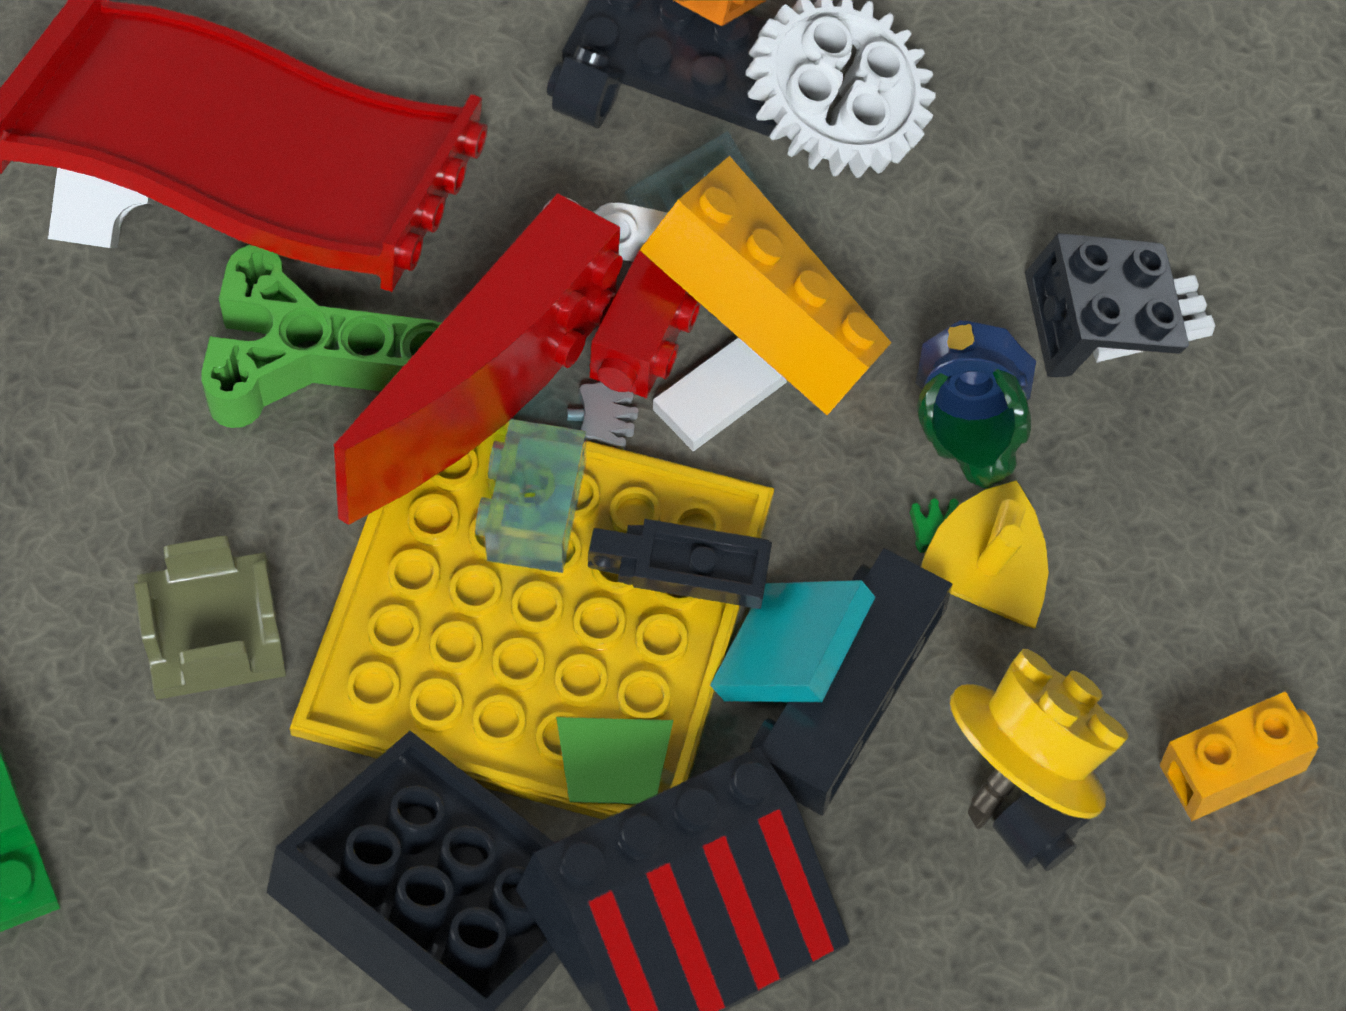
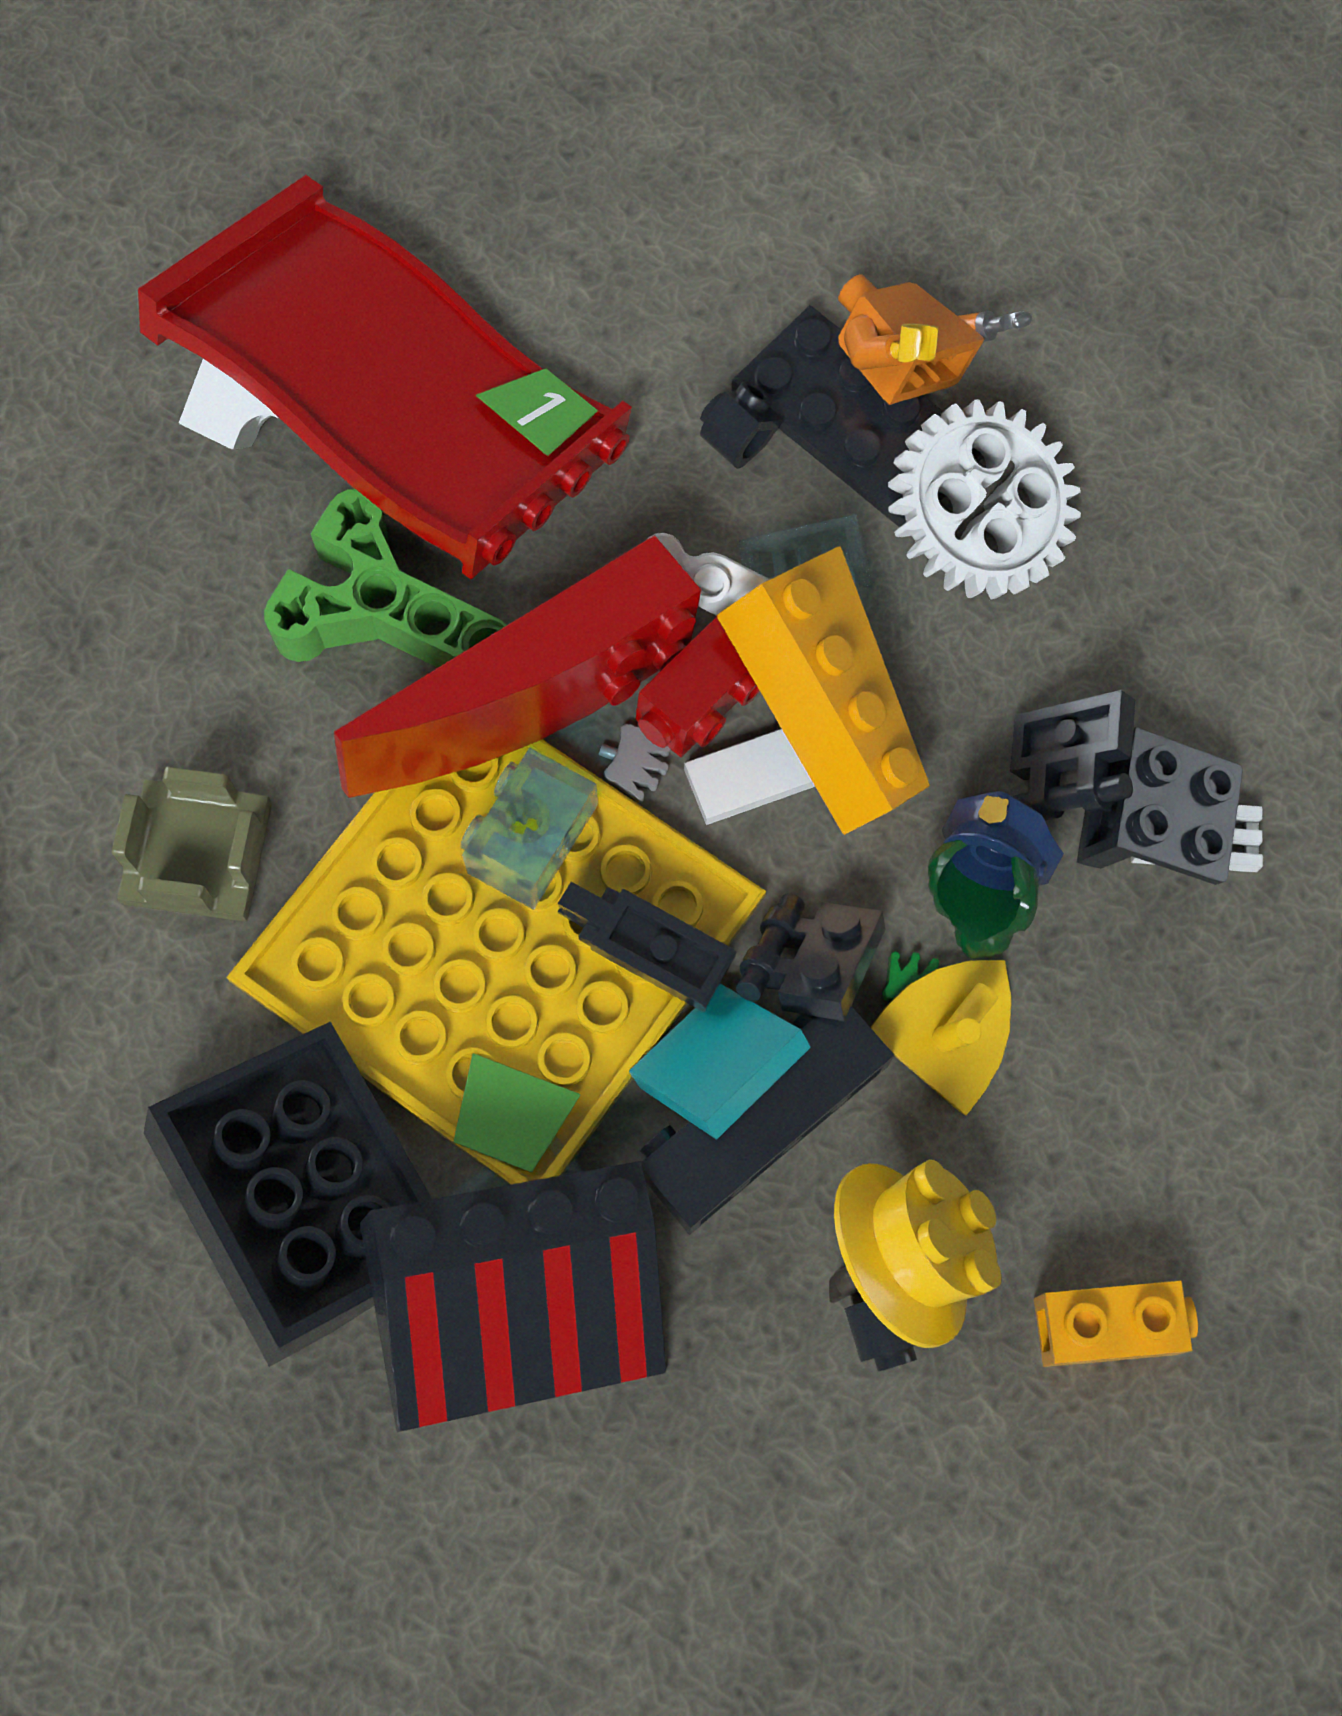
camera: 20 degrees right, 10 degrees up
(393, 125) = (540, 408): none -> bright green sticker
(859, 522) = (829, 962): none -> black plate
(1010, 260) = (1074, 737): none -> black plate

